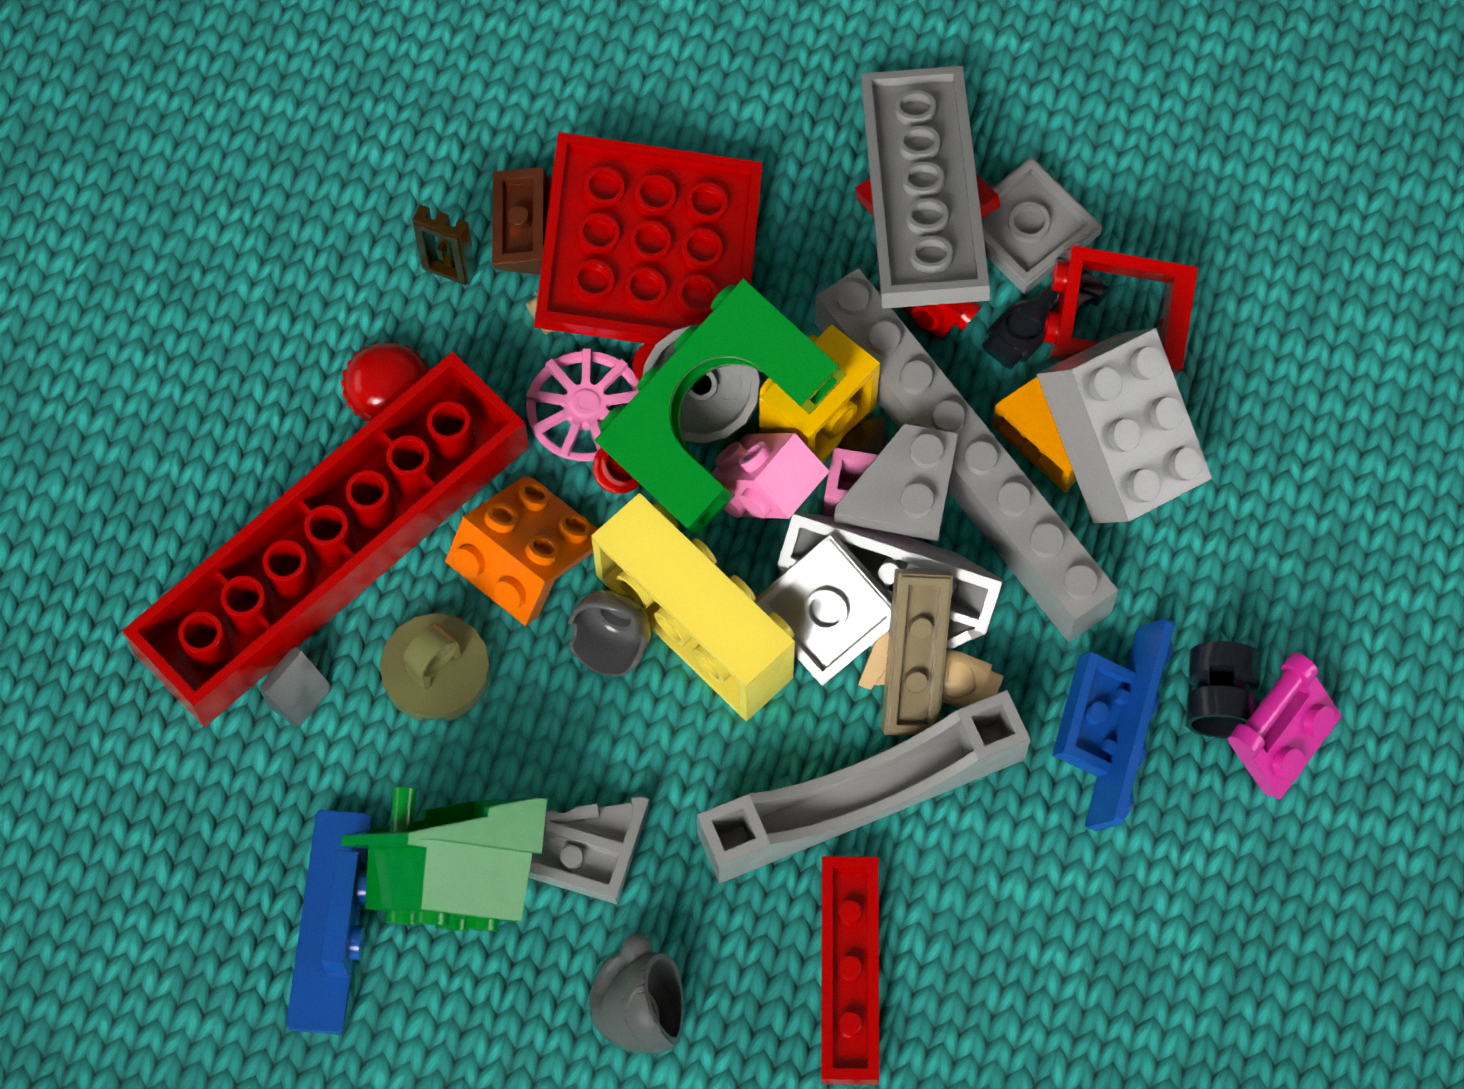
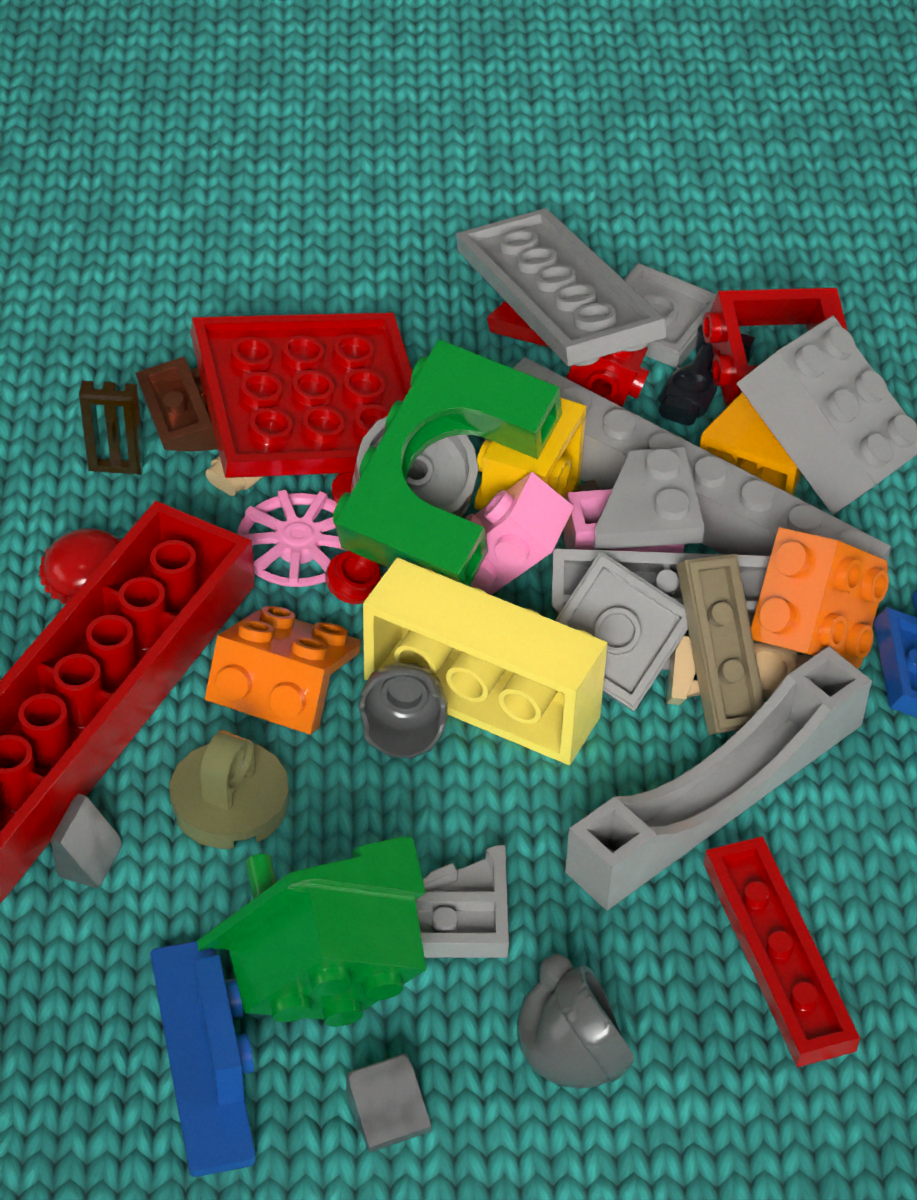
camera: 20 degrees left, 20 degrees down
(466, 1014) = (387, 1102): none -> flat silver slope
(1021, 637) = (819, 596): none -> orange bracket

